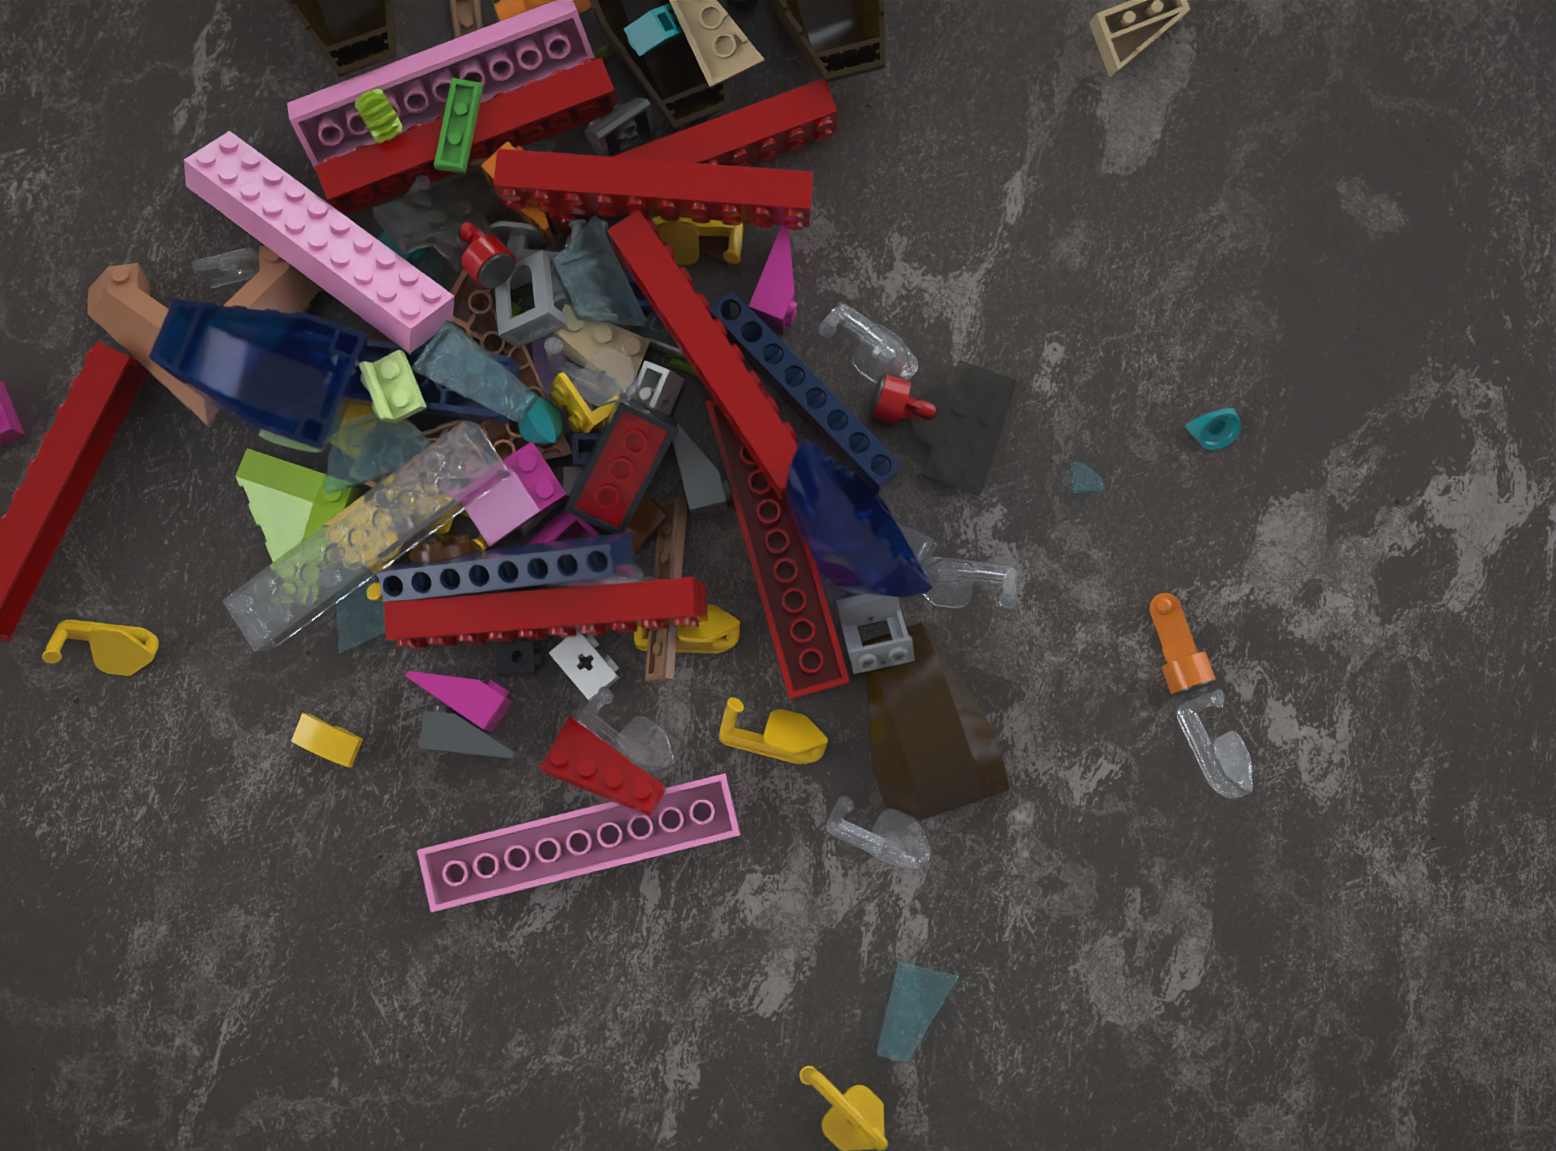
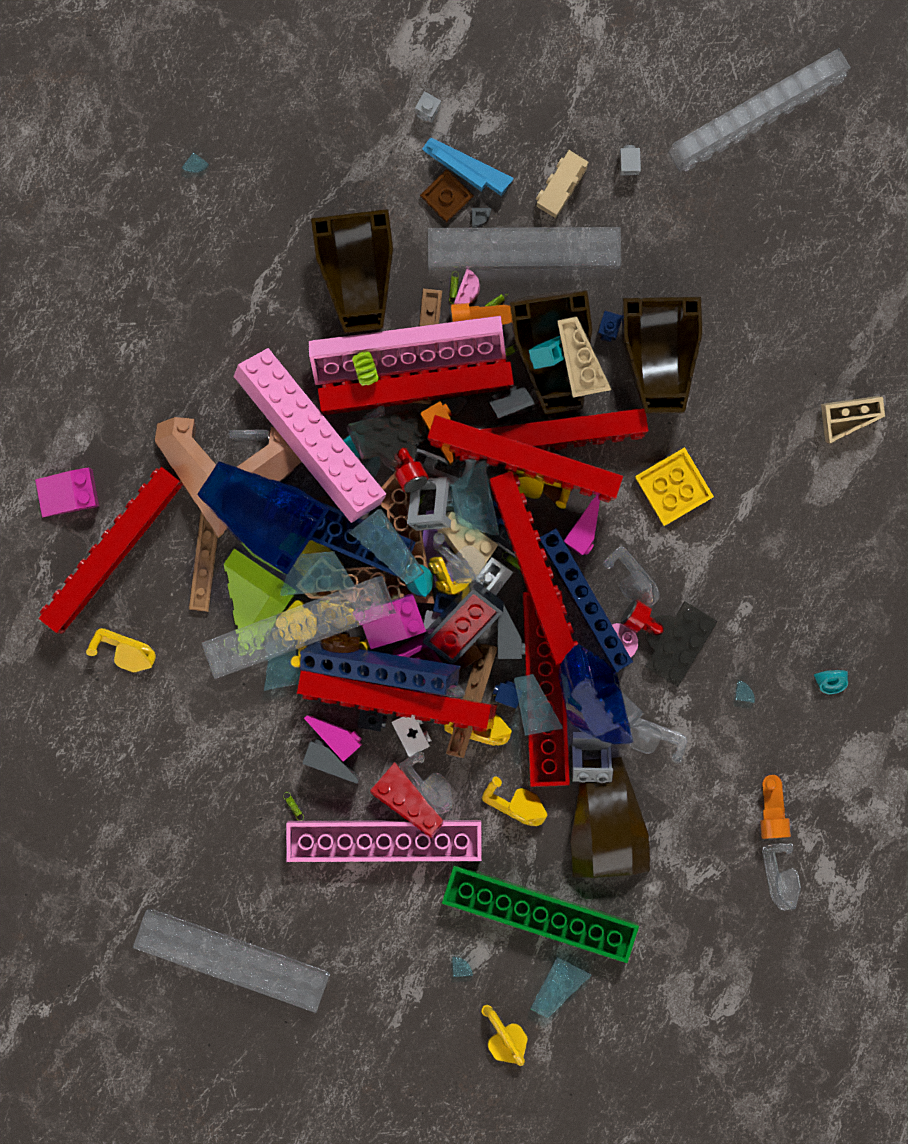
camera: 10 degrees right, 5 degrees up
(205, 486) = (203, 567): none -> medium nougat tile
(326, 740) = (244, 741): yellow slope -> none
(380, 1093) = (231, 960): none -> clear brick
(392, 387) = (336, 541): yellowish green bracket -> none
(426, 824) = (295, 809): none -> lime piece
(458, 125) = (412, 385): bright green tile -> none
(720, 567) = (506, 694): none -> dark blue brick
(750, 1015) = (461, 967): none -> clear light blue tile
(765, 572) = (534, 707): none -> clear light blue wing
(854, 897) = (540, 913): none -> green brick
(887, 435) = (627, 637): none -> bright pink plate
(894, 839) = (572, 884): clear piece -> none
(898, 194) = (674, 486): none -> yellow plate

